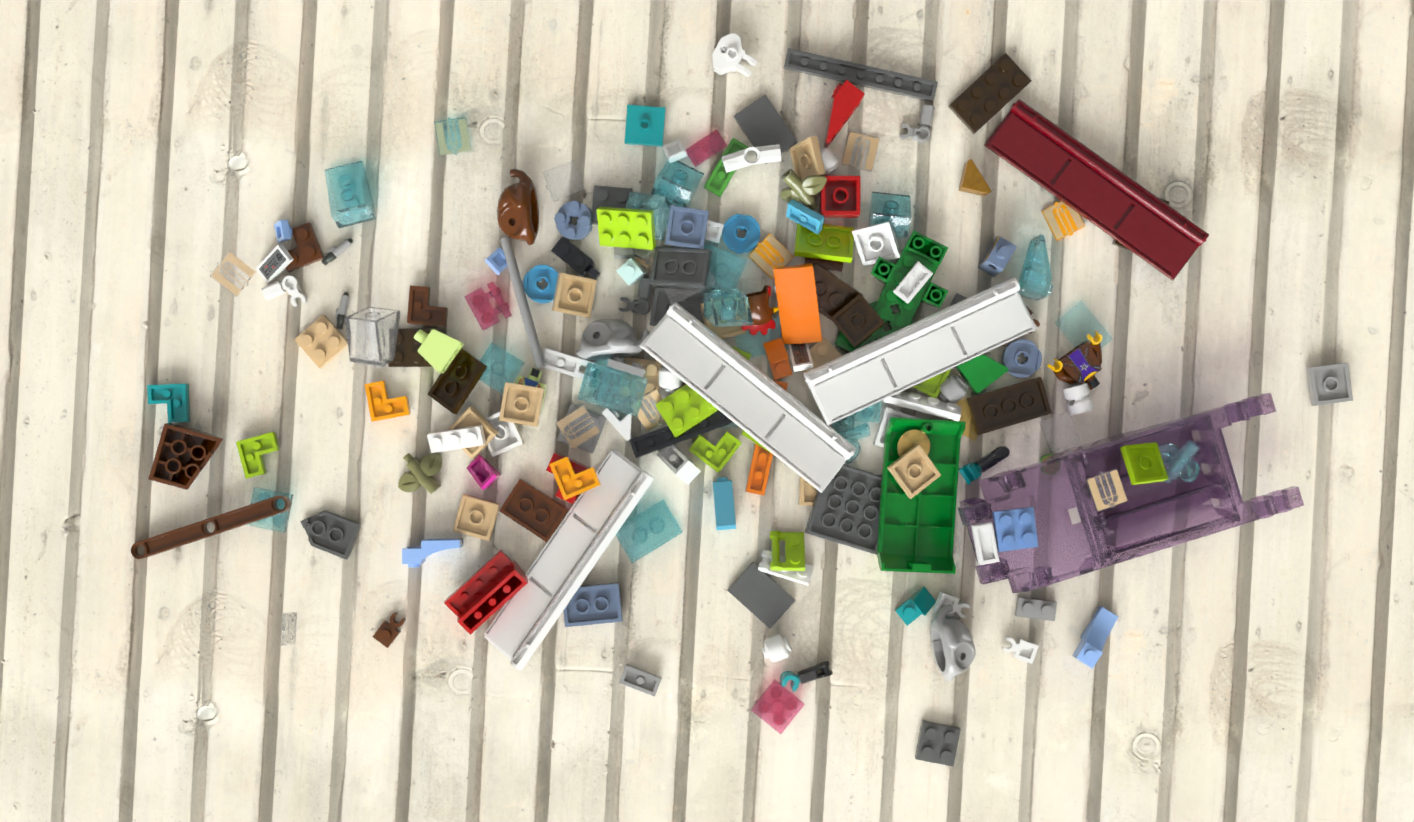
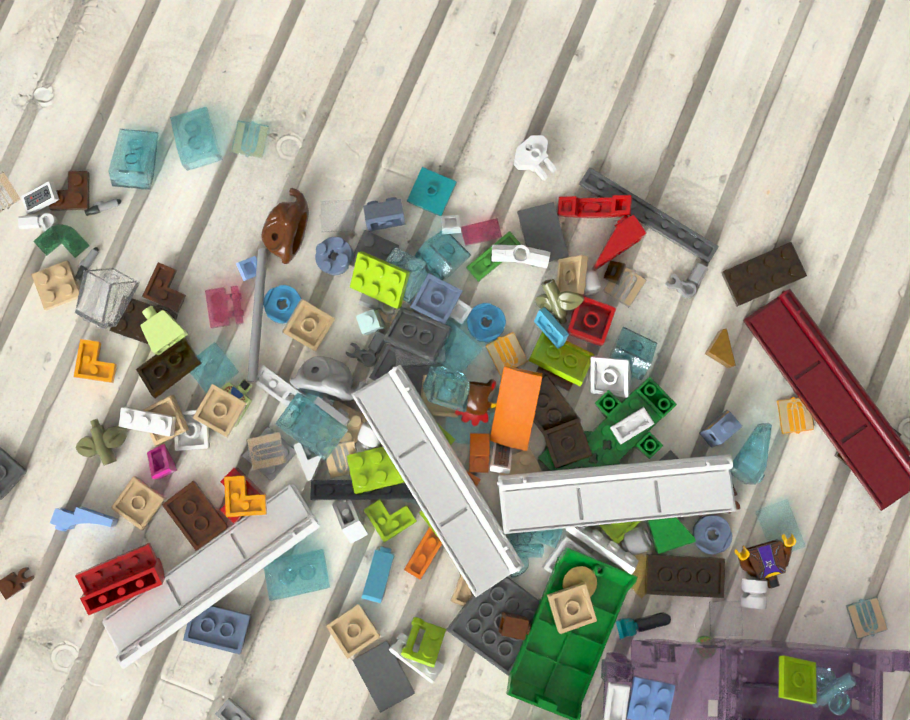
camera: 15 degrees right, 5 degrees down
(283, 231) = (60, 171): light blue plate -> none
(310, 291) = (64, 235): none -> clear green plate
(400, 154) = (195, 139): none -> clear light blue slope
(575, 258) = (322, 291): black hinge -> none
(608, 163) = (384, 214): none -> sand blue slope
(718, 563) = (353, 631): none -> tan plate
(806, 86) = (595, 207): none -> red slope
(846, 141) = (615, 272): none -> dark brown slope
(866, 506) = (514, 626): none -> reddish brown brick
(1106, 490) = (752, 693): piece -> none
(1190, 385) = (866, 617): none -> piece

